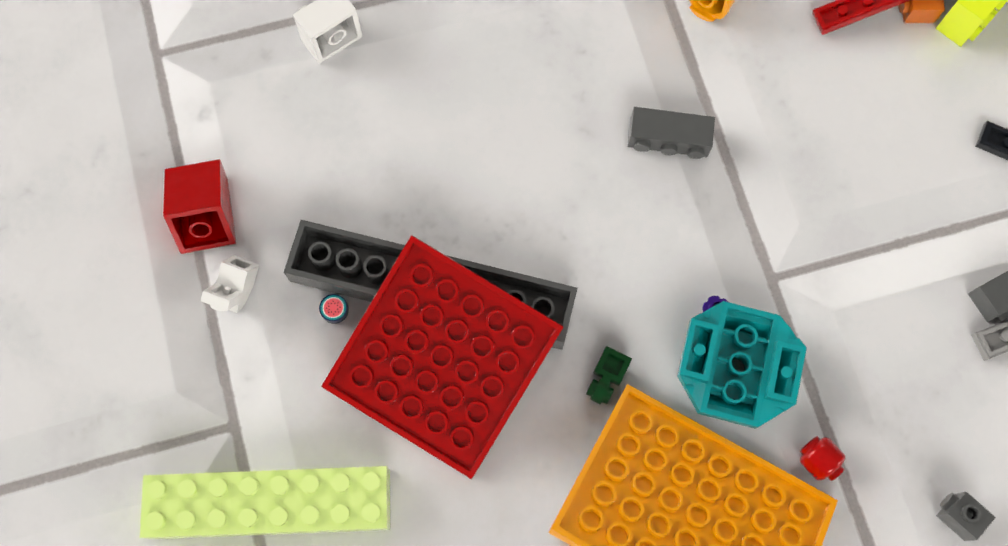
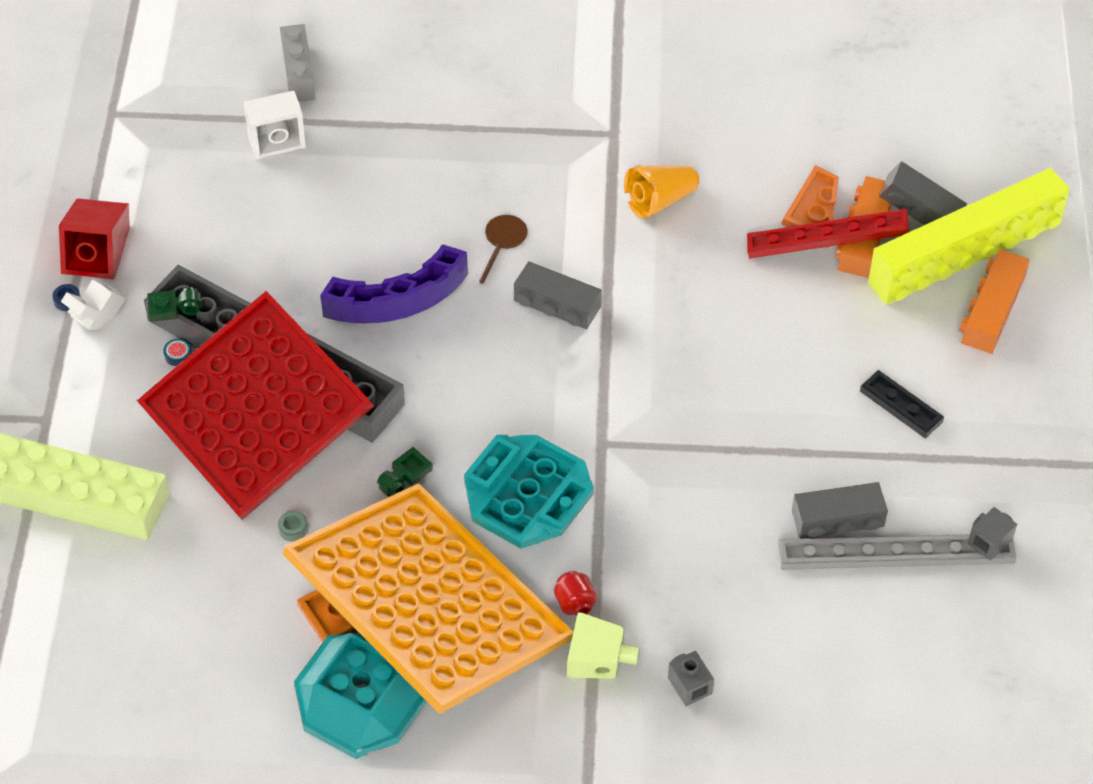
camera: 20 degrees right, 20 degrees down
(197, 279) = (60, 292): none -> dark blue tile
(309, 274) = (166, 305): none -> dark green plate
(524, 185) = (396, 296): none -> dark purple brick
(524, 468) = (292, 526): none -> sand green tile
(590, 74) = (503, 232): none -> reddish brown piece
(866, 511) = (598, 649): none -> yellowish green torso

